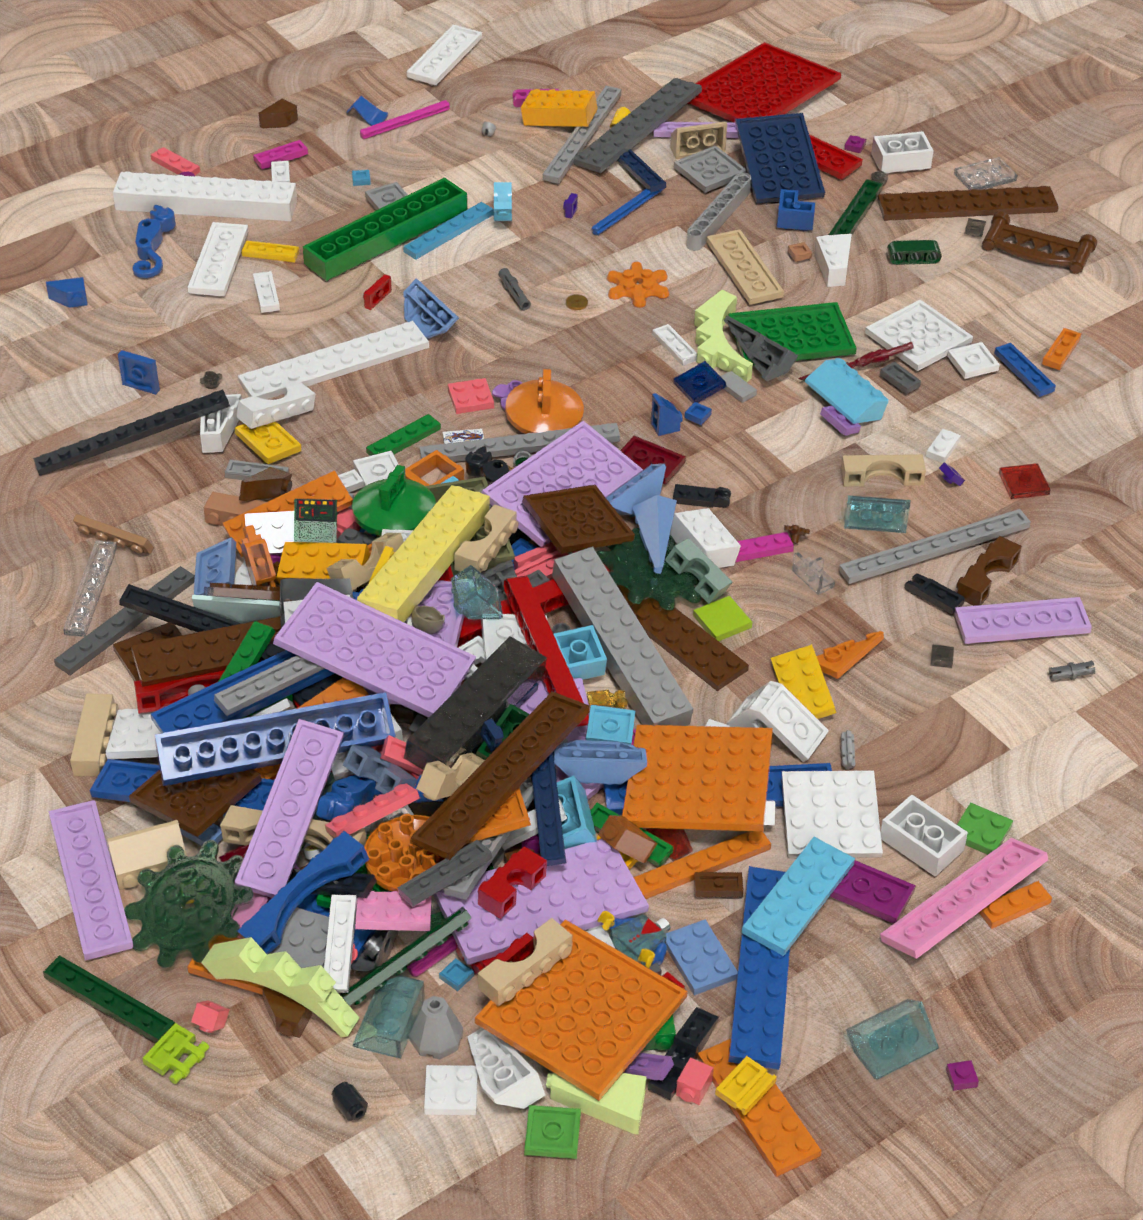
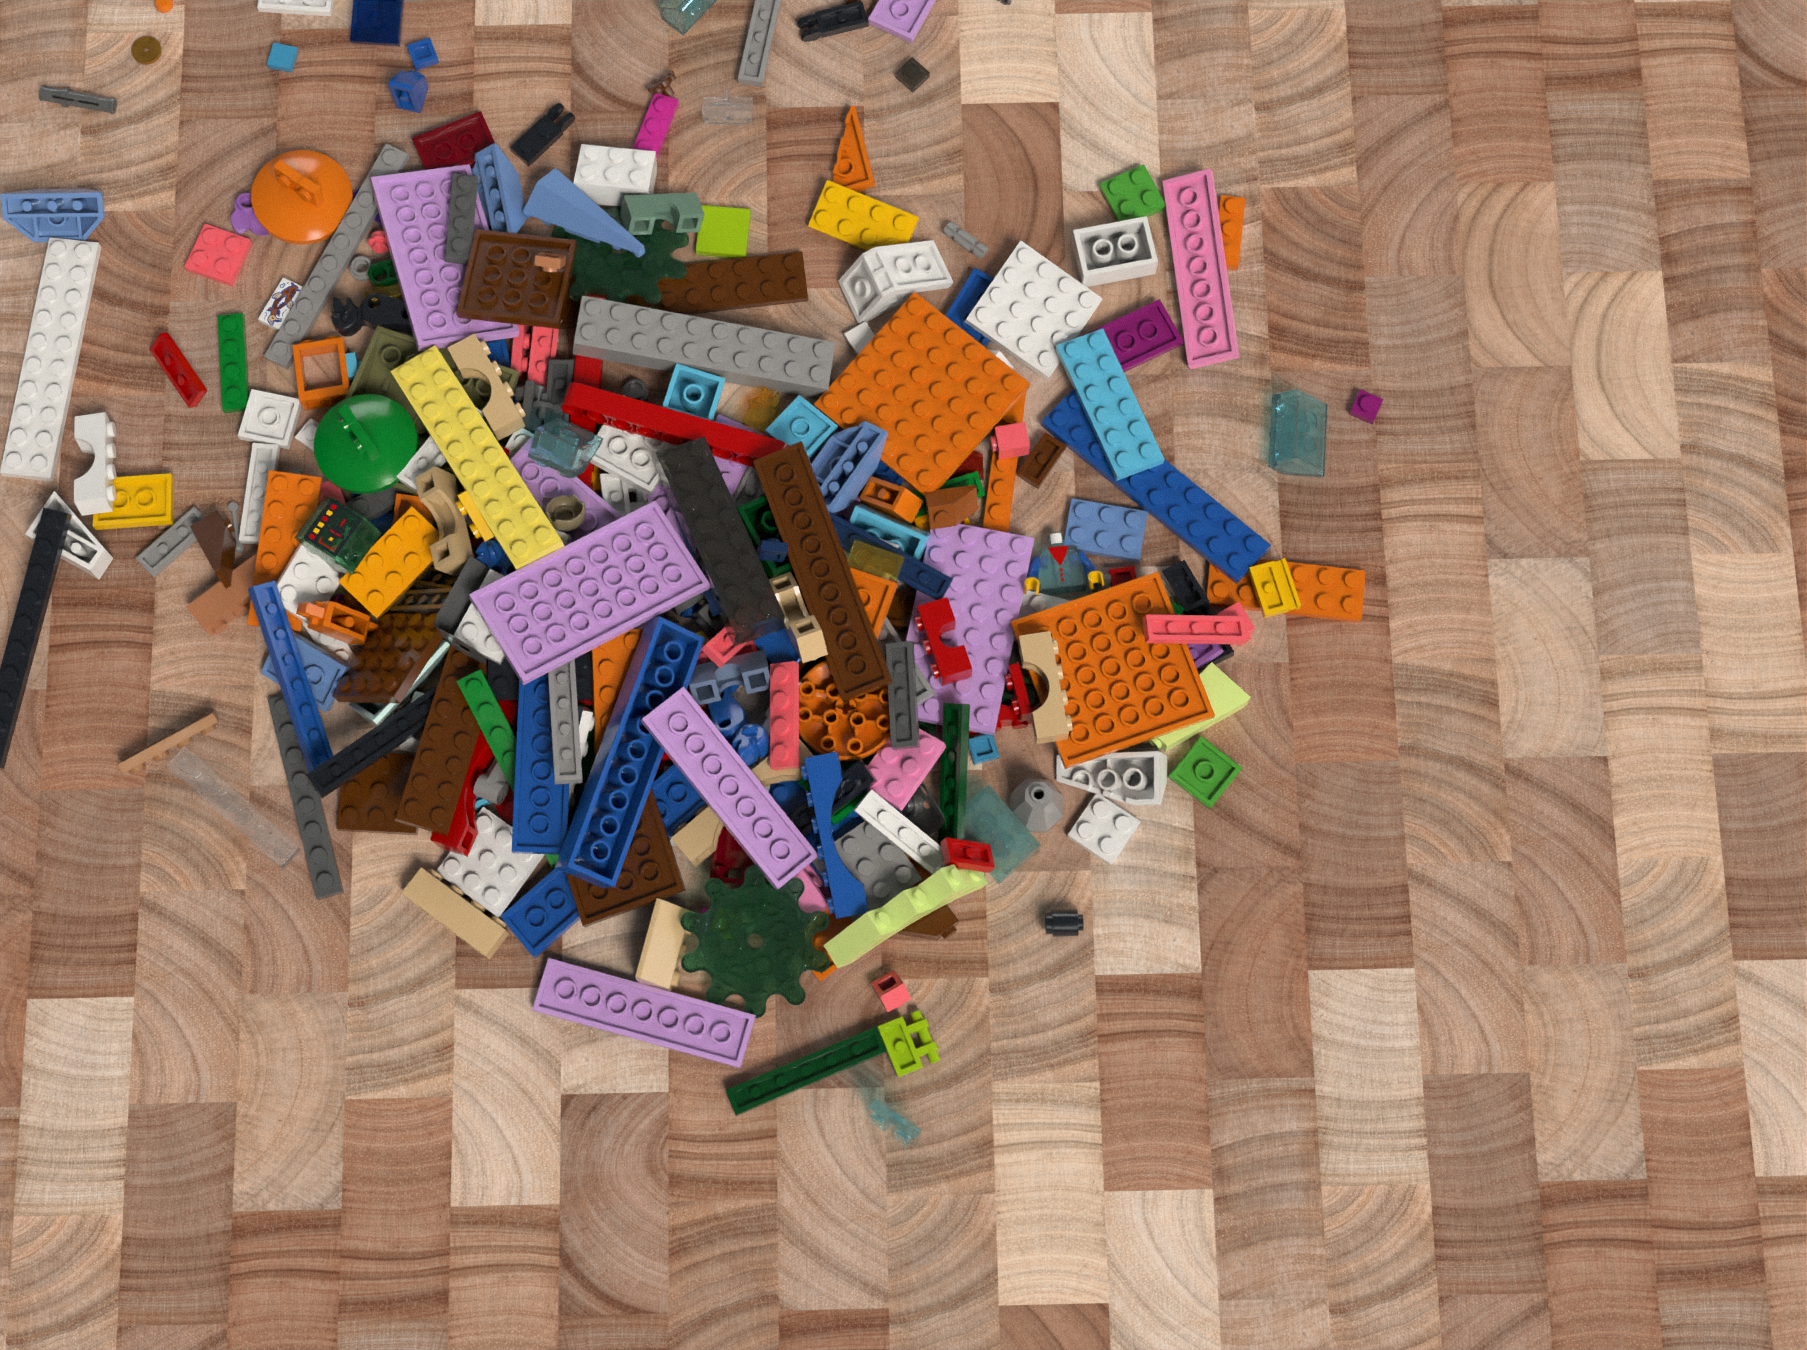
camera: 55 degrees left, 30 degrees up
(95, 1064) = (885, 1118): none -> clear light blue plate
(200, 554) = (291, 674): none -> blue plate
(354, 995) = (967, 855): none -> red plate
(375, 415) = (178, 370): none -> red plate
(536, 800) = (875, 561): none -> clear yellow plate
(600, 476) = (461, 218): none -> dark grey plate
(601, 802) = (891, 499): none -> orange slope
(602, 522) = (549, 261): none -> nougat plate
(631, 357) = (282, 57): none -> dark azure tile
(658, 1038) = (1194, 629): none -> coral plate
(712, 849) = (1010, 441): none -> coral brick

